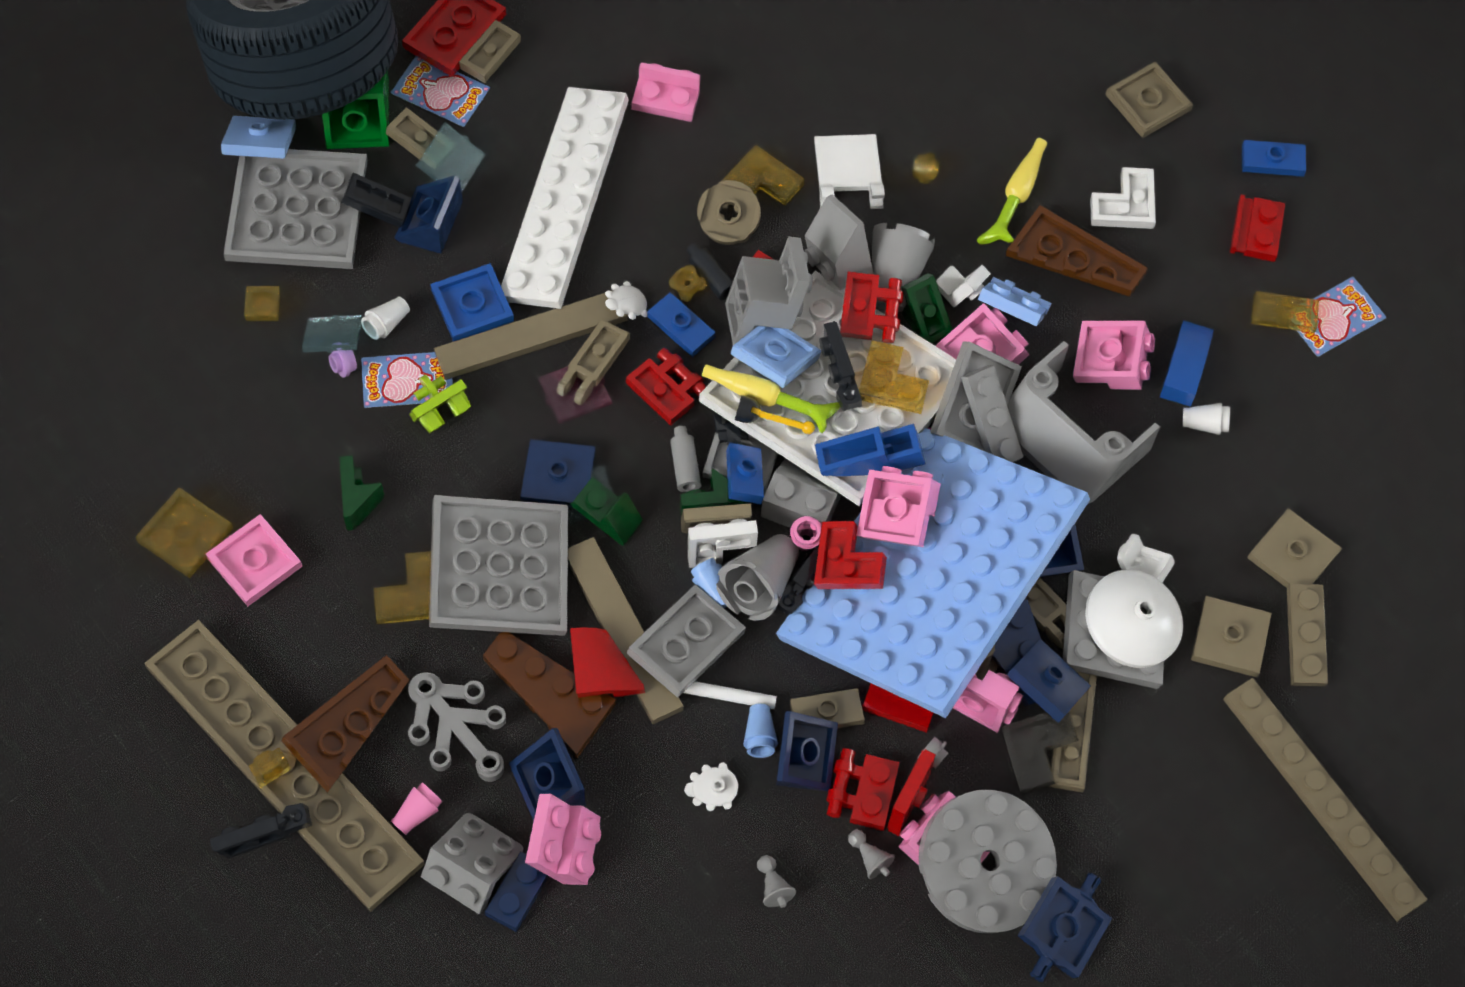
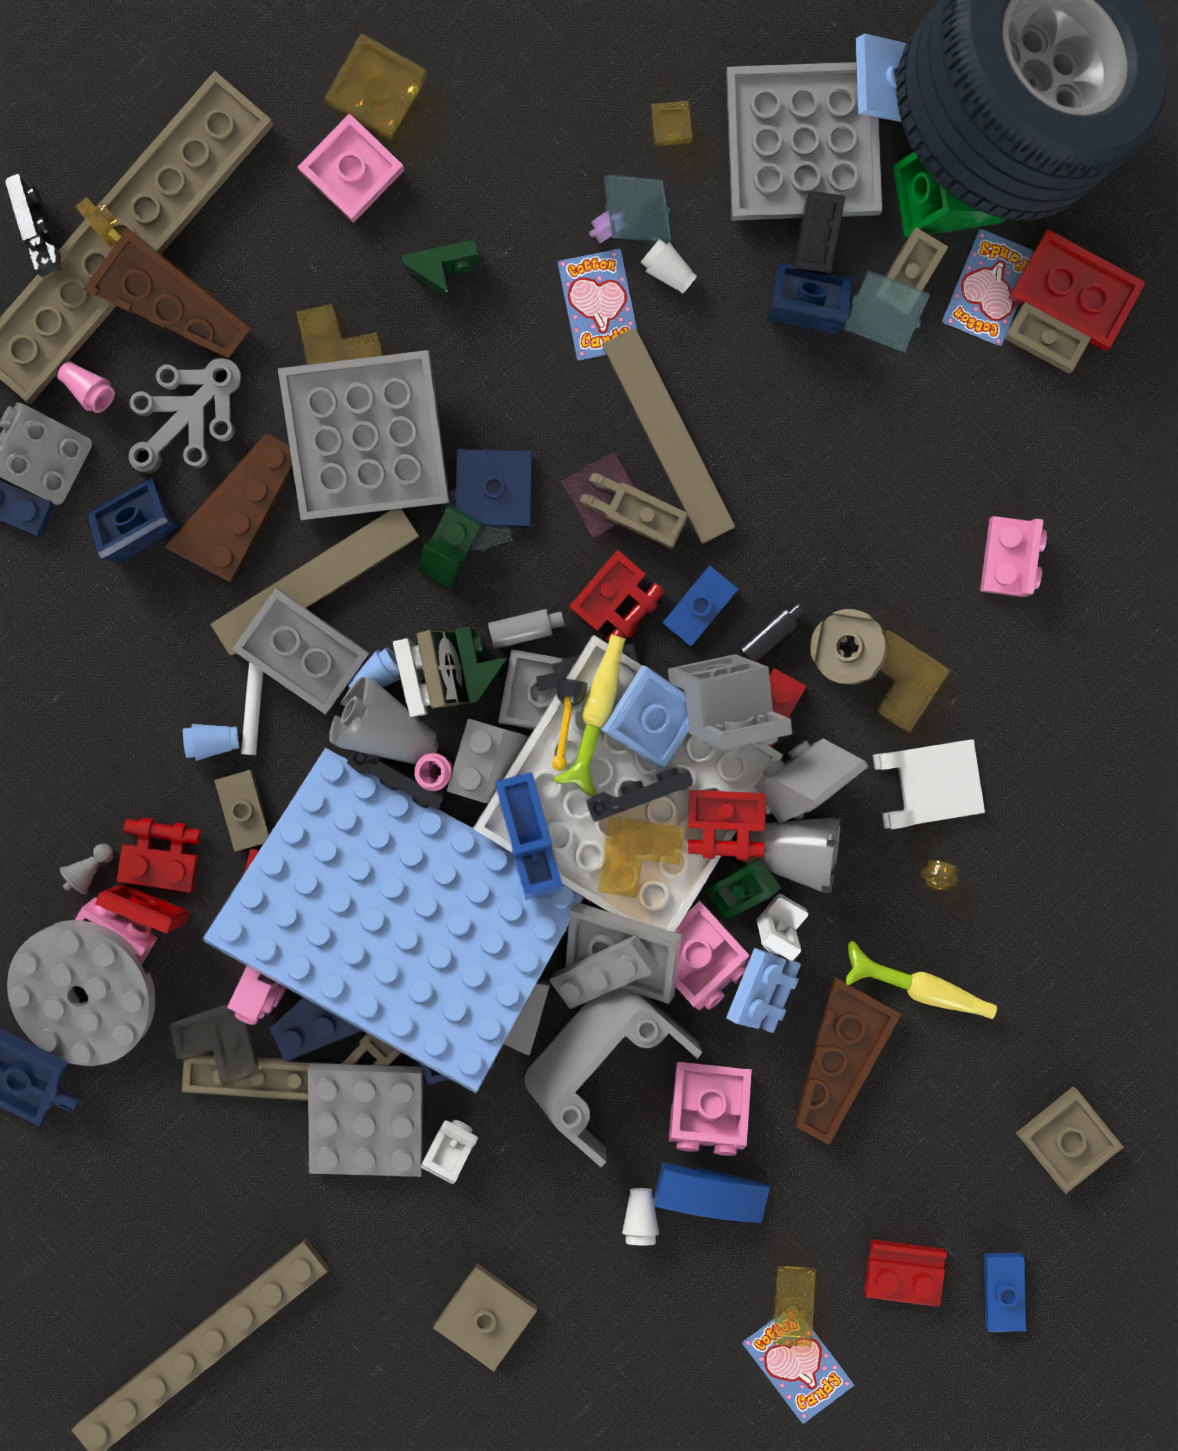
camera: 90 degrees right, 25 degrees up
(427, 411) = (553, 331): lime hips -> none
(472, 302) = (699, 362): blue plate -> none
(563, 840) = (52, 543): bright pink plate -> none
(564, 197) = (854, 451): white plate -> none
(601, 665) = (260, 560): red slope -> none
(626, 300) = (721, 540): white piece -> none
(685, 274) = (753, 597): clear yellow plate -> none
(713, 787) = (145, 696): white piece -> none
(744, 473) = (501, 696): blue plate -> none
(777, 890) = (38, 772): light grey piece -> none
(807, 752) = (184, 791): dark blue slope -> none
(840, 565) = (391, 809): red plate -> none
(898, 506) = (460, 873): bright pink plate -> none
(937, 747) = (200, 925): light grey plate -> none
(1049, 680) = (276, 1051): dark blue plate -> none
(1122, 627) = (373, 1123): white dish -> none
(1132, 207) = (913, 1125): white plate -> none
(1231, 636) = (377, 1247): dark tan plate -> none
(1307, 635) = (384, 1332): dark tan plate -> none

